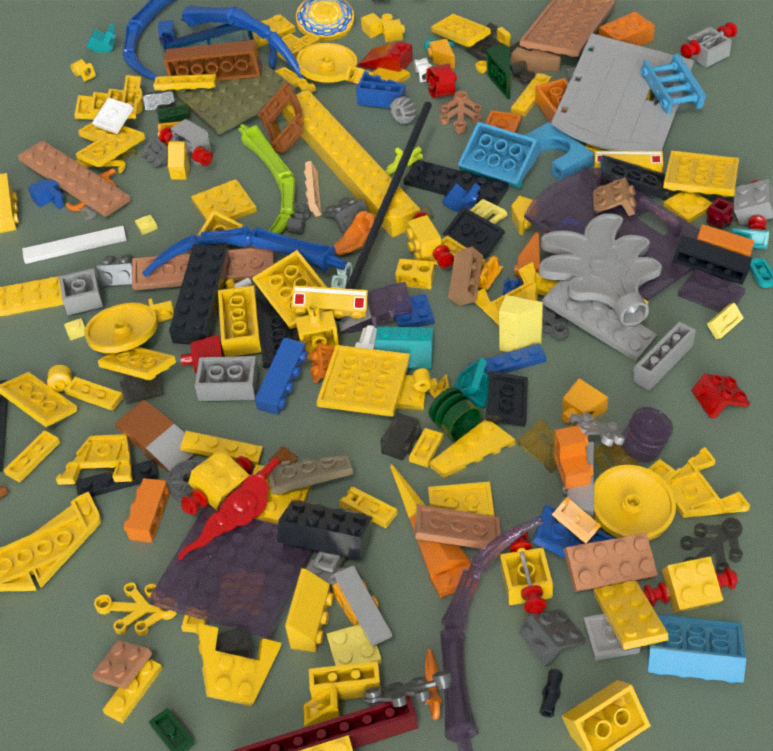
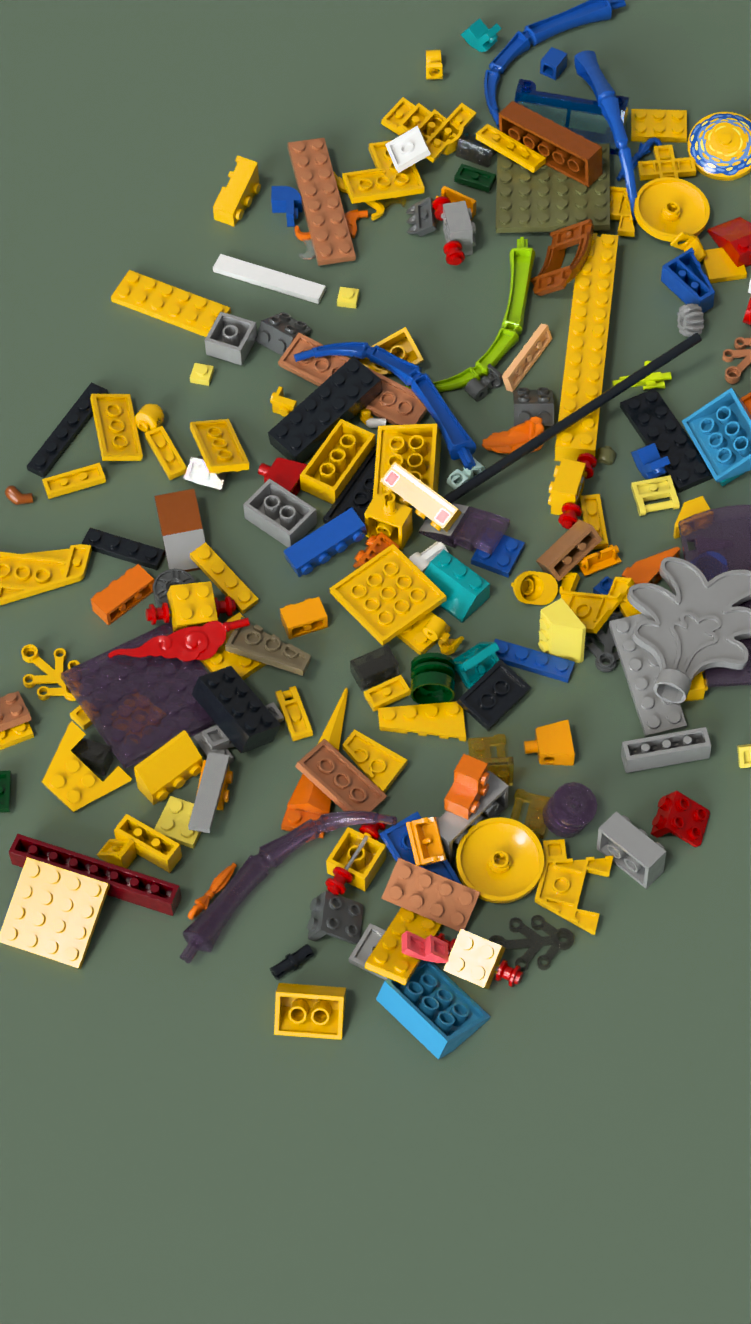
camera: 35 degrees right, 10 degrees up
(101, 452) = (127, 515): yellow wing -> none
(121, 328) = (235, 400): yellow dish -> none
(178, 160) = (428, 244): yellow slope -> none
(225, 199) = (436, 319): yellow plate -> none
(284, 454) = (266, 621): clear orange tile -> none
(311, 436) = (304, 617): none -> light orange brick
(416, 273) = (538, 519): yellow brick -> none
(416, 687) = (183, 879): dark grey plant -> none
(463, 315) = (535, 588): none -> yellow piece
(474, 231) = (624, 508): black plate -> none
(608, 432) = (549, 782): light grey plant -> none
(653, 601) = (426, 949): none -> coral slope
(717, 430) = (631, 849): none -> light grey brick

